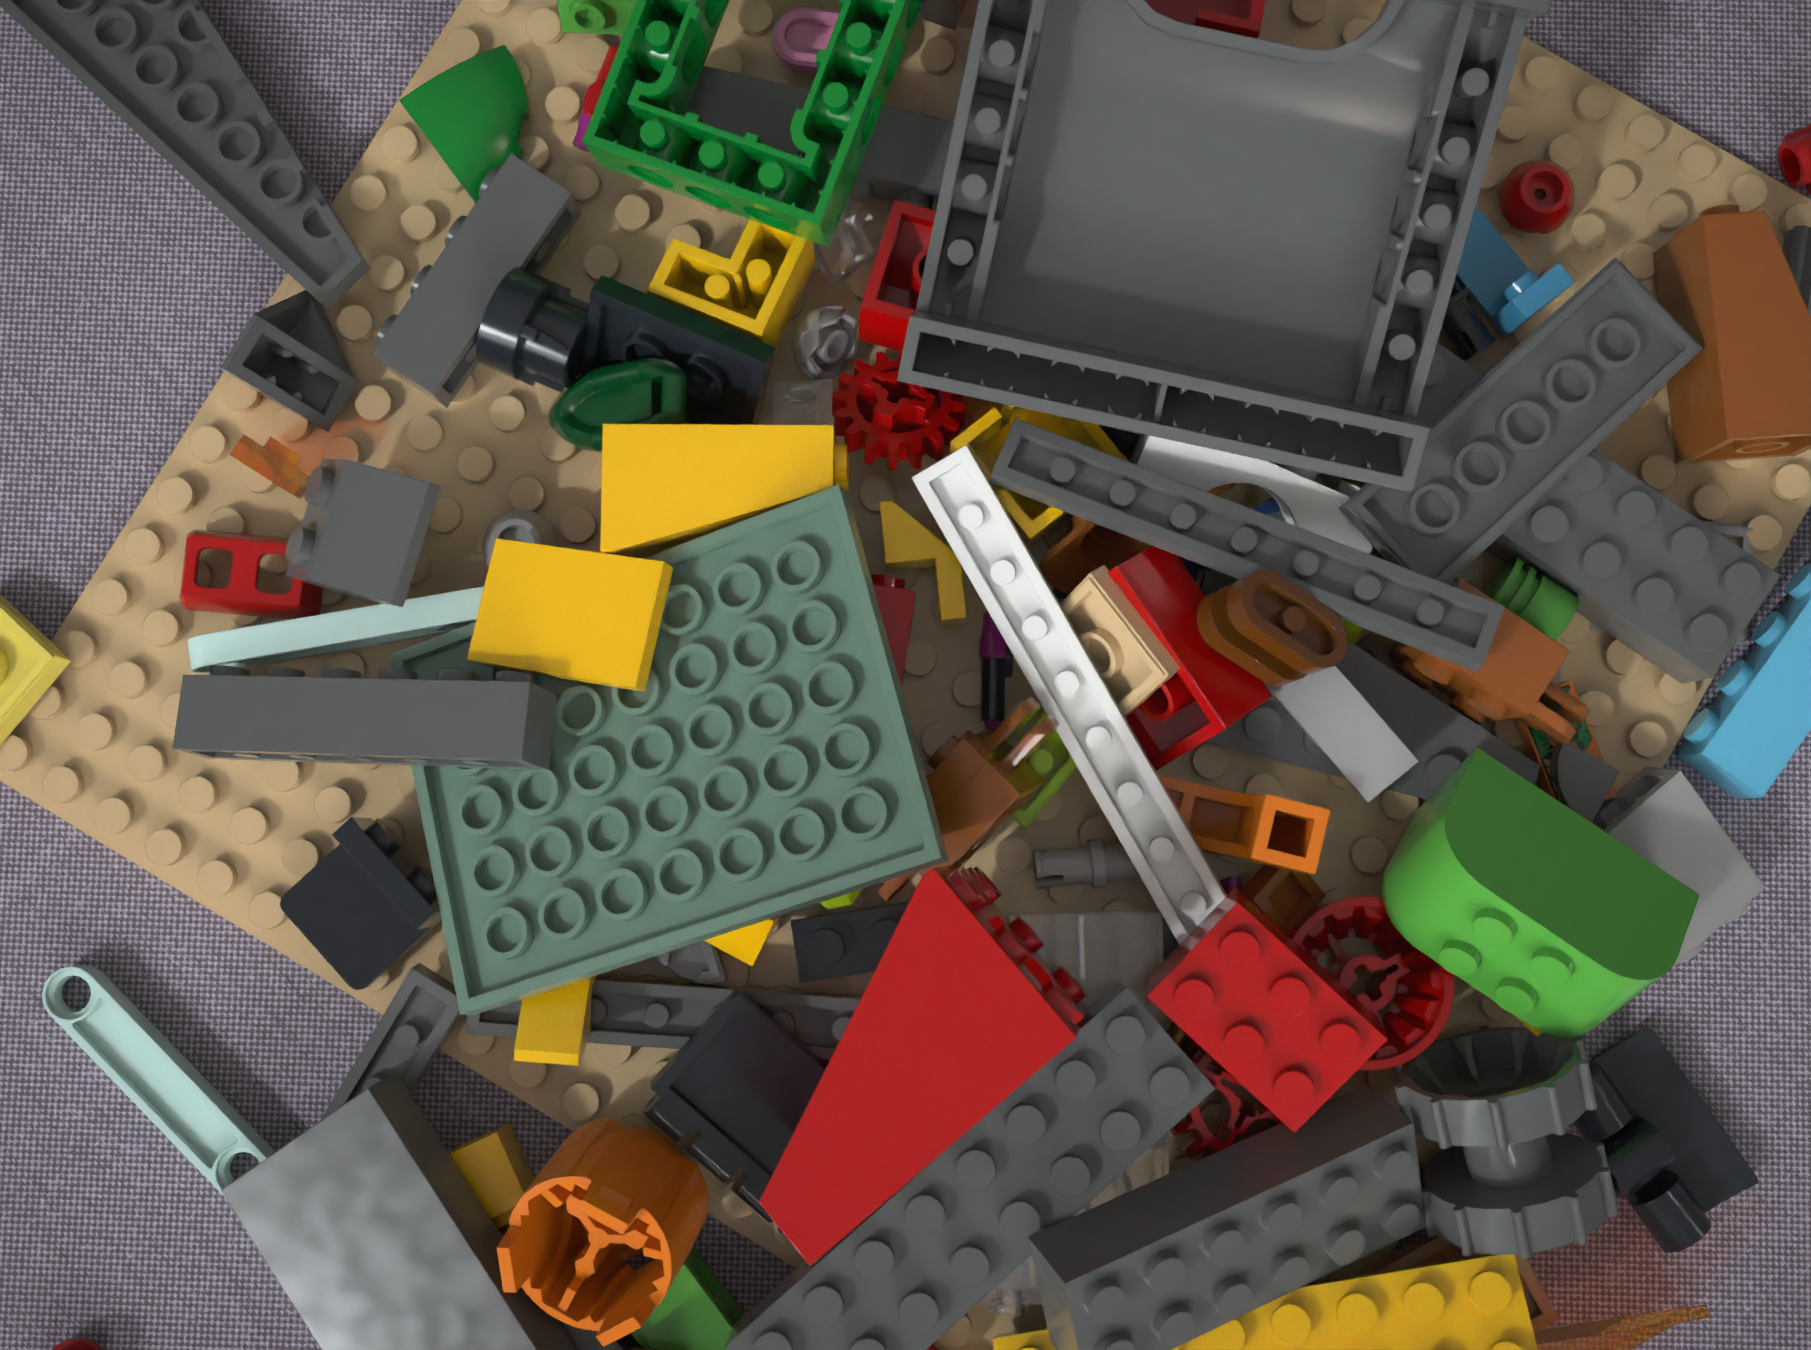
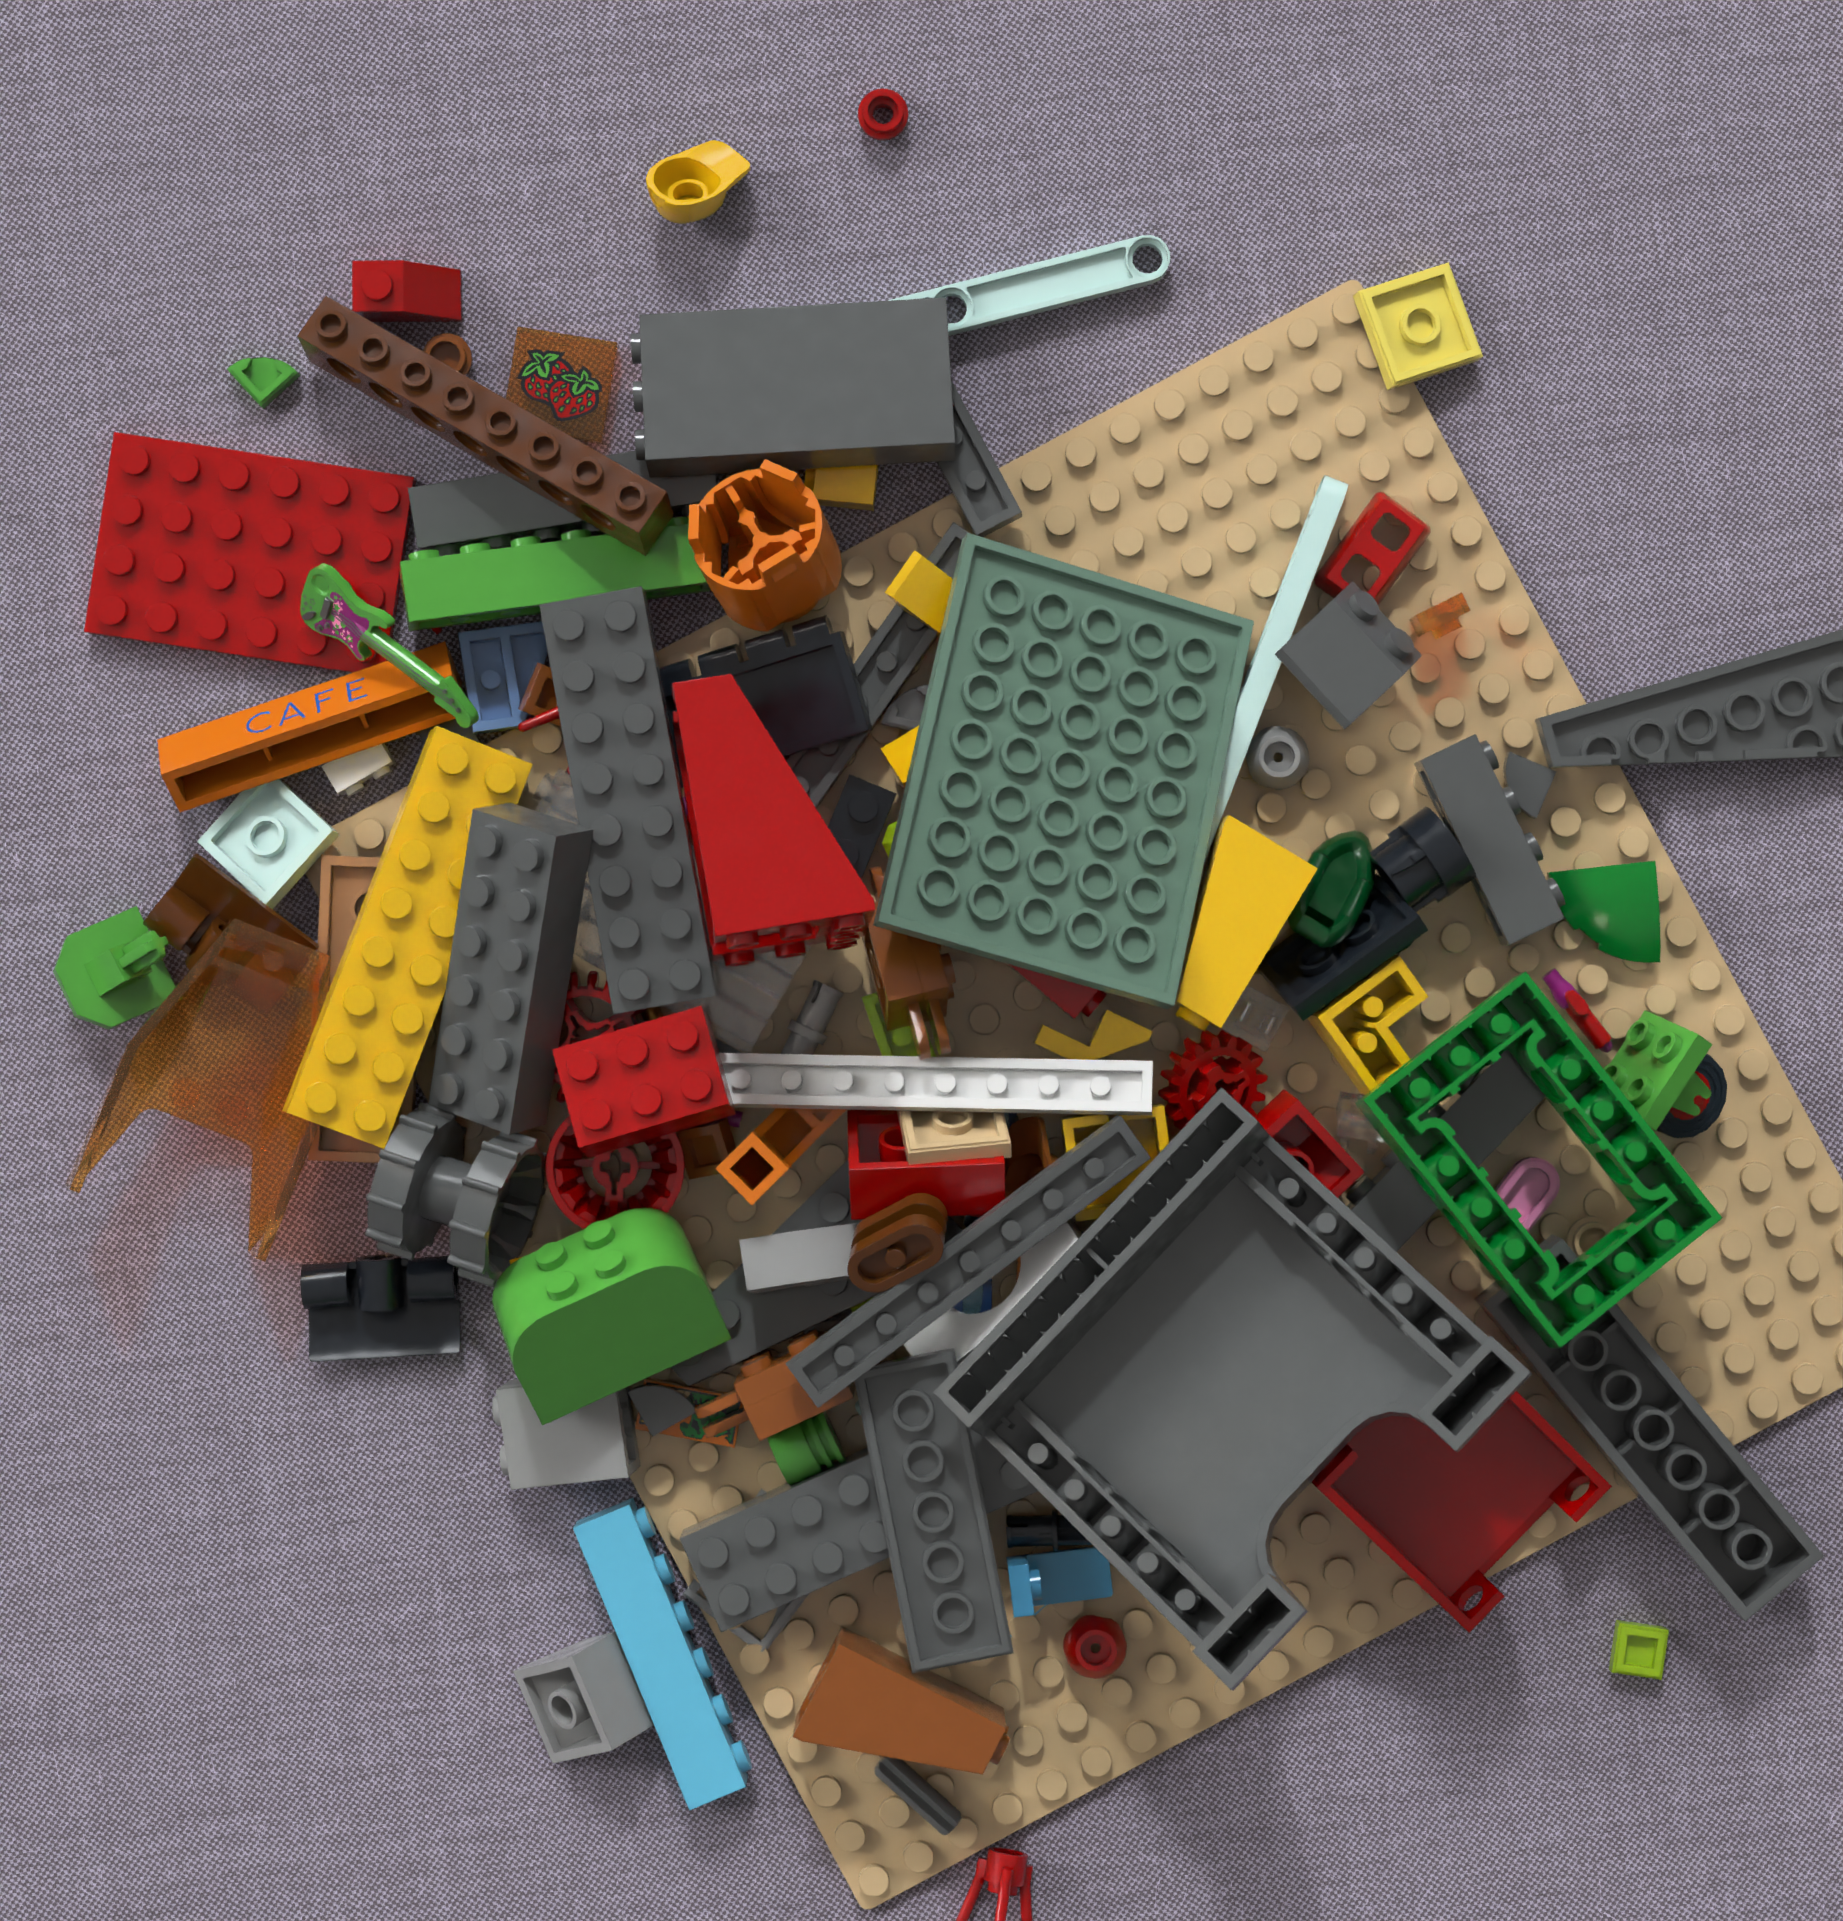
camera: 125 degrees right, 5 degrees up
(294, 360) = (1507, 677): dark grey slope -> none
(364, 902) = (1087, 503): black bracket -> none
(367, 719) = (1211, 582): dark grey brick -> none
(392, 279) = (1528, 782): none -> dark grey tile
(570, 614) = (1199, 767): yellow tile -> none
(824, 341) = (1296, 1063): light grey plate -> none
(995, 668) = (986, 1043): black piece -> none

